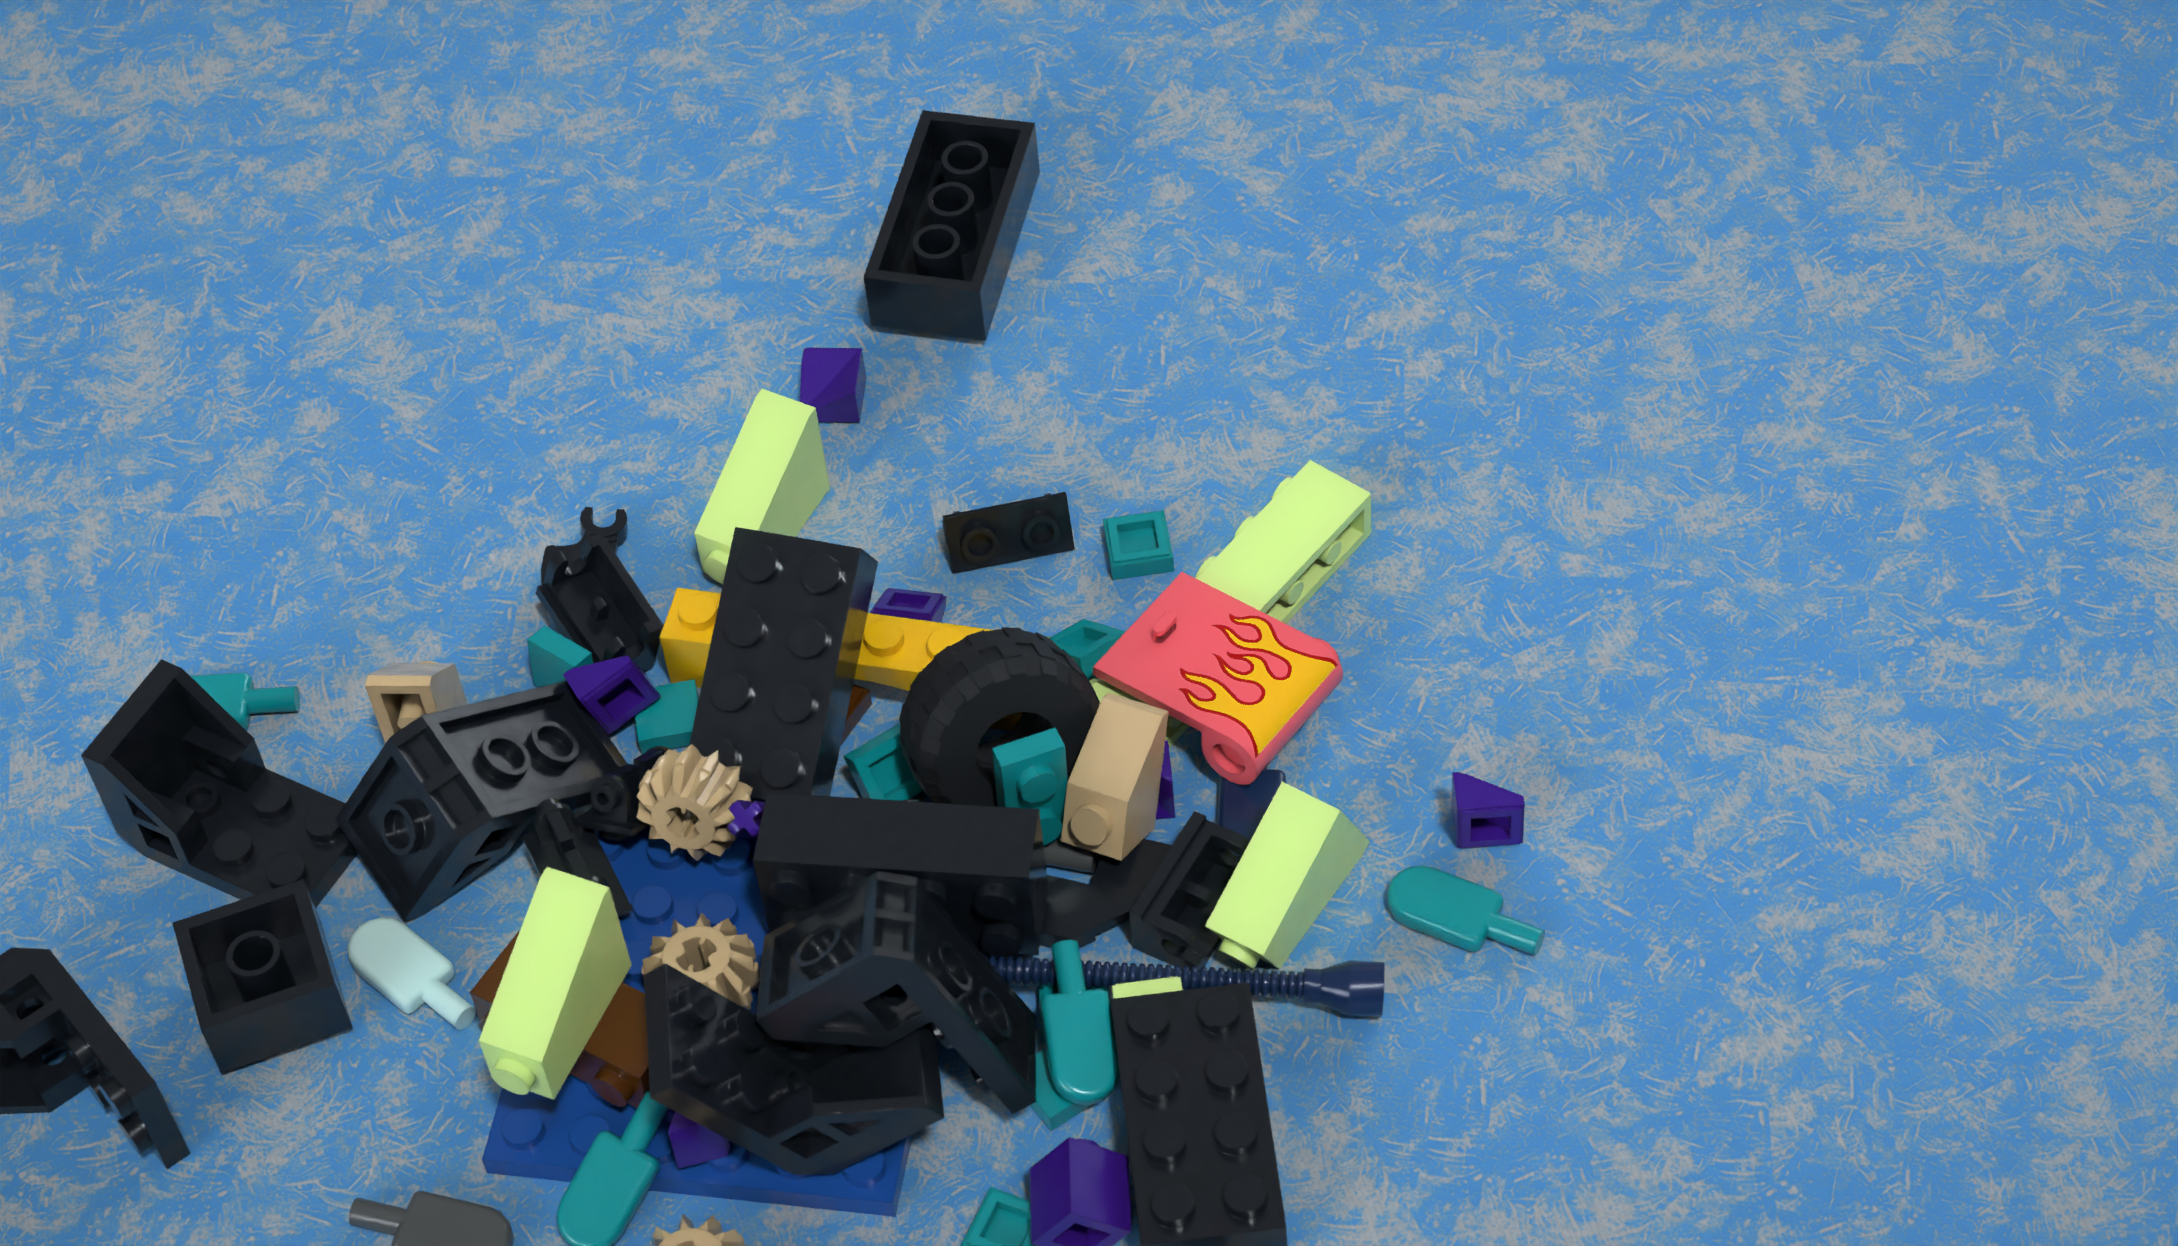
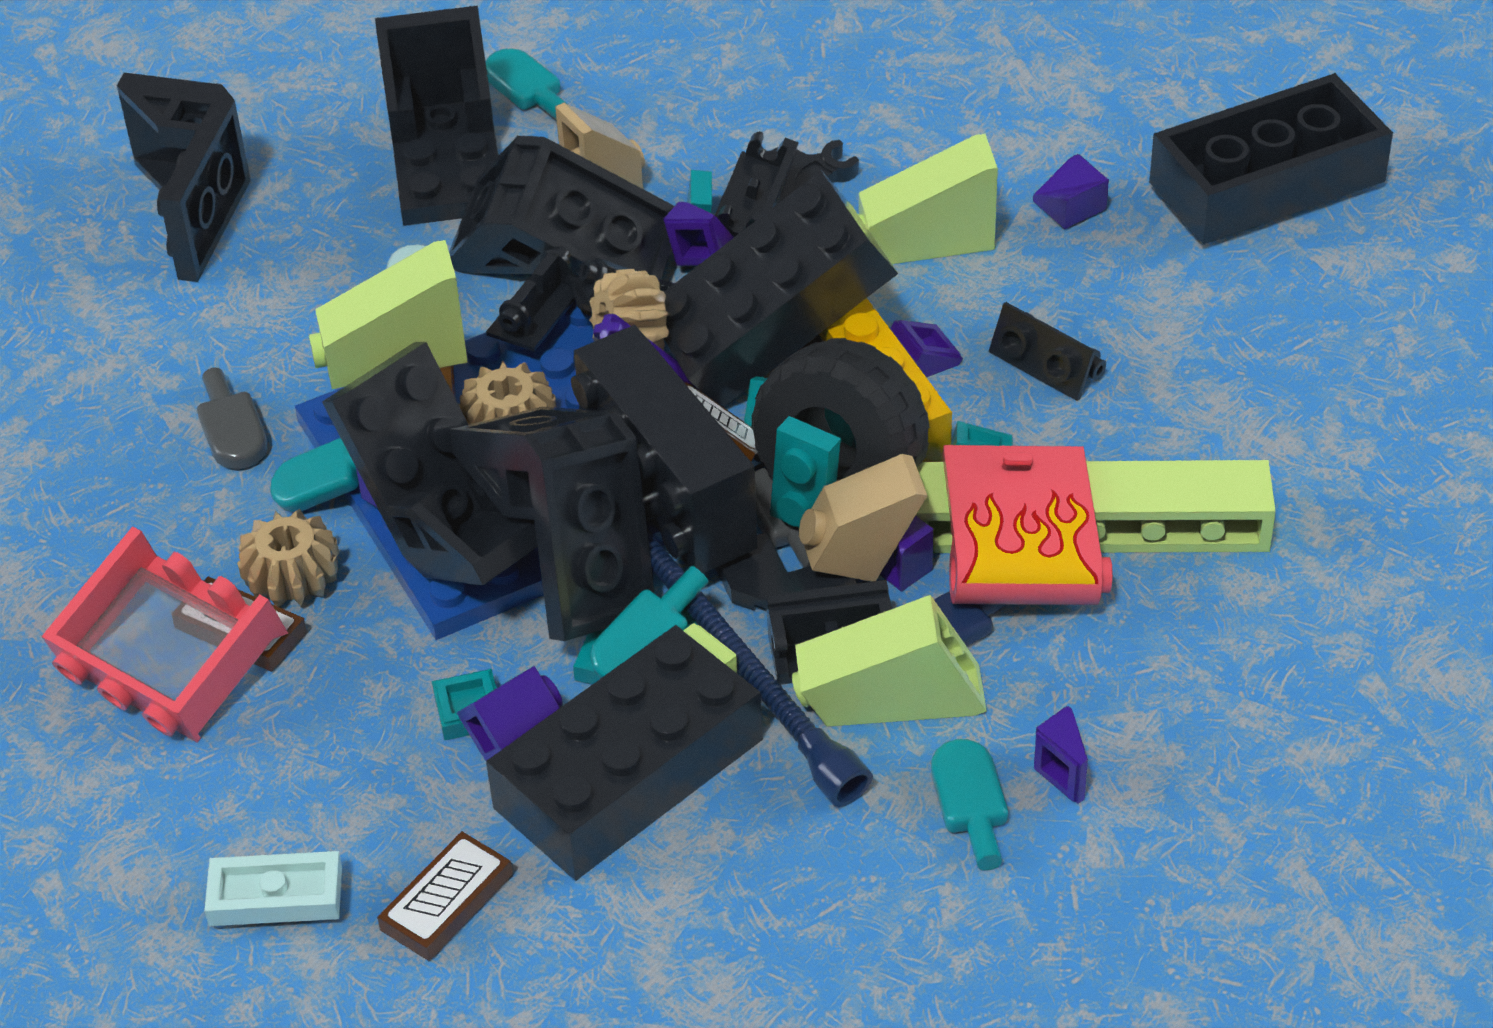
camera: 50 degrees right, 5 degrees down
(261, 976) = (330, 218): black brick -> none
(1138, 545) = (1113, 428): teal tile -> none

